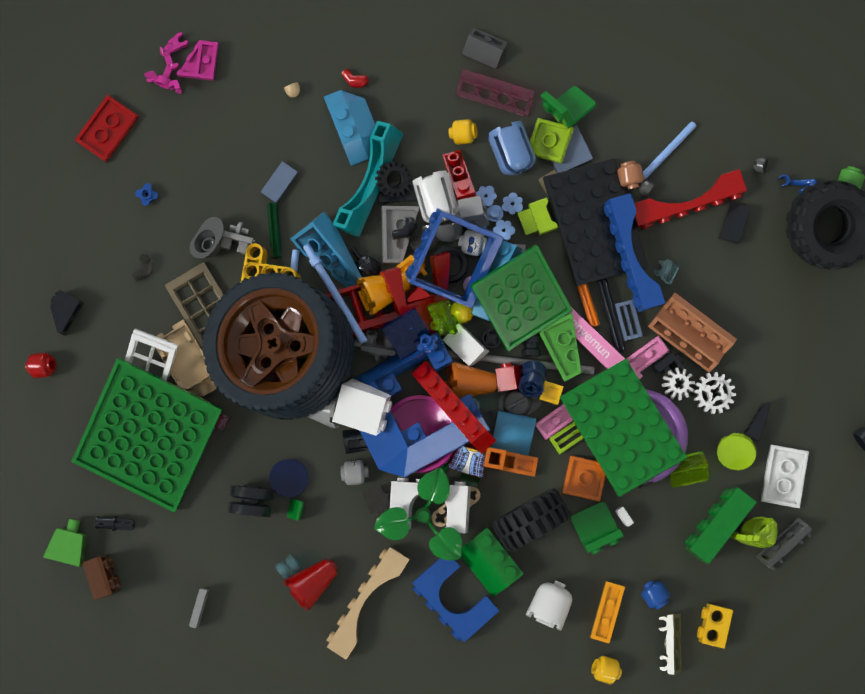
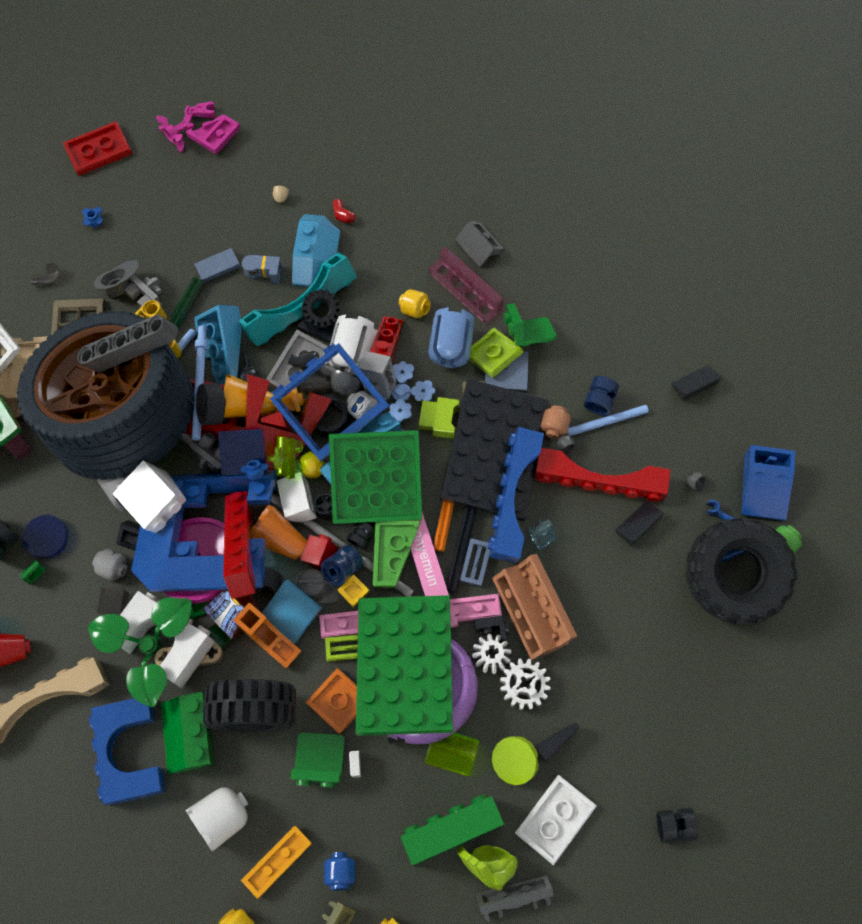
camera: 30 degrees right, 15 degrees down
(289, 299) = (127, 343): none -> dark grey beam
(319, 164) = (262, 266): none -> sand blue leg
(362, 310) = (210, 404): none -> black tyre
(654, 133) = (601, 395): none -> dark blue wheel
(721, 80) = (696, 382): none -> black slope
(816, 139) = (767, 482): none -> blue slope

